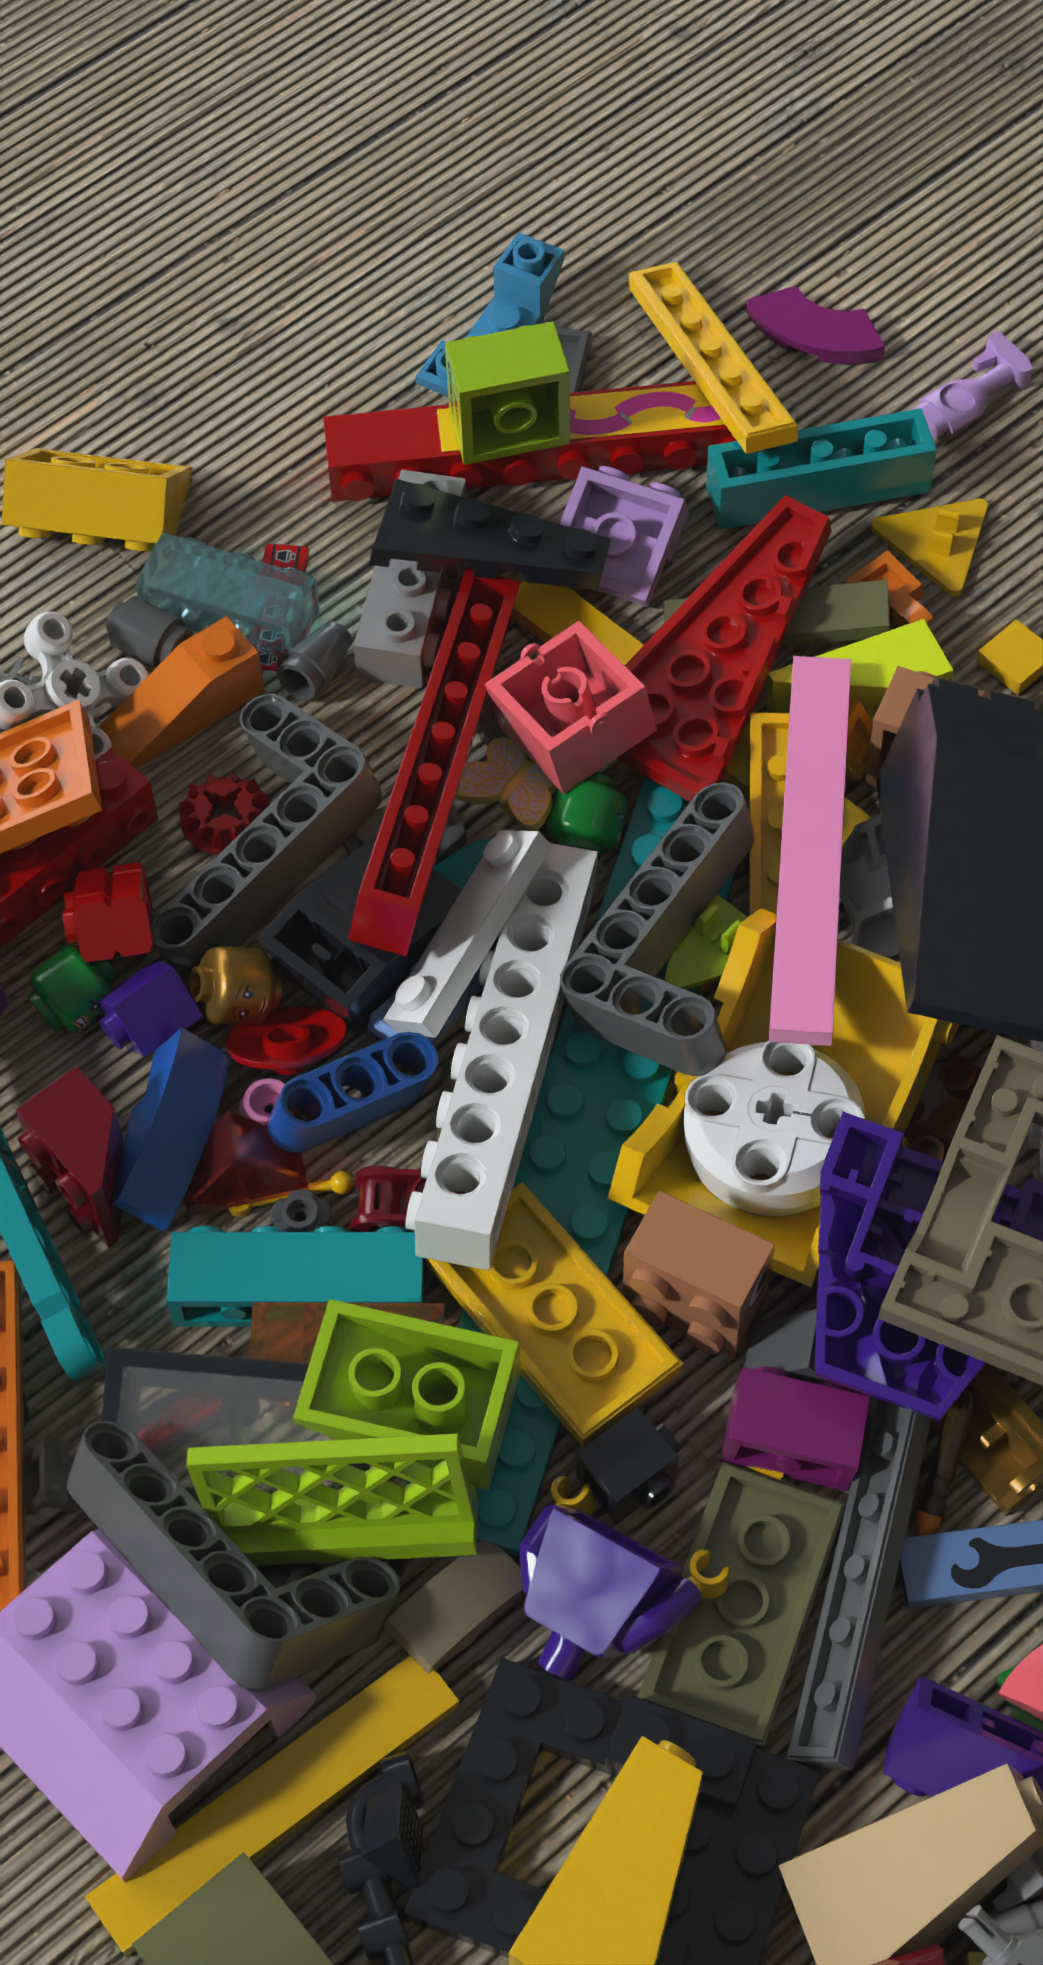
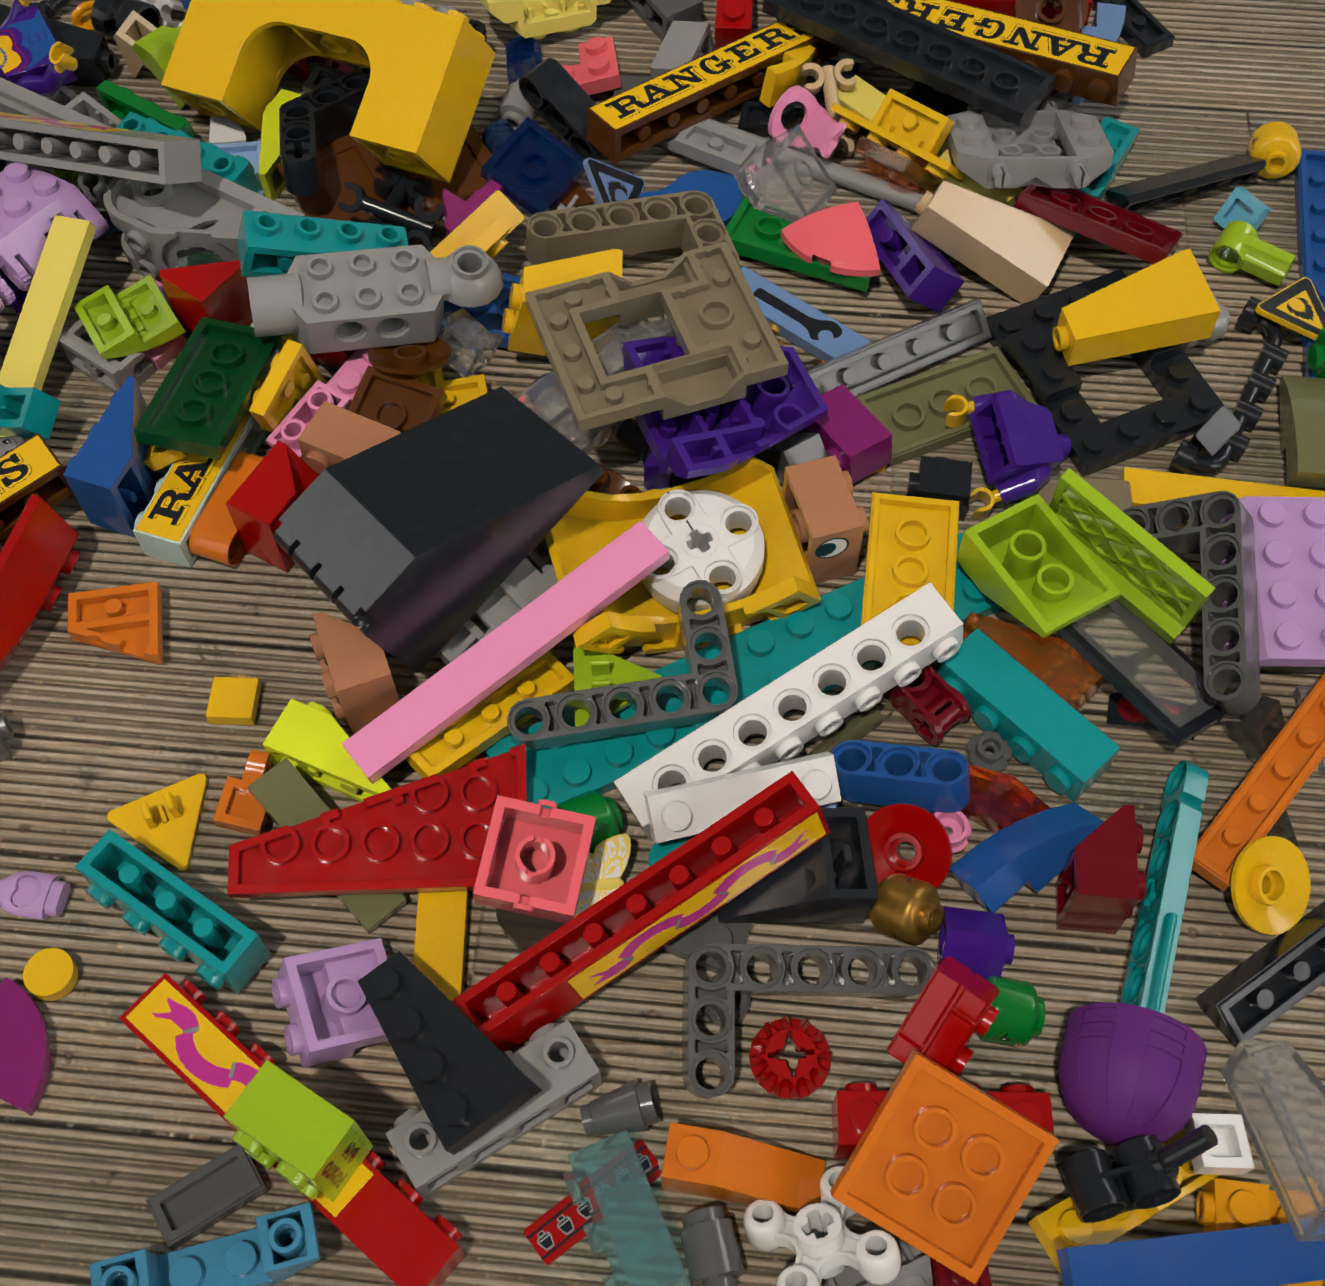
camera: 135 degrees left, 0 degrees up
(713, 358) = (118, 1067): yellow tile -> none
(859, 380) = (50, 974): none -> yellow tile

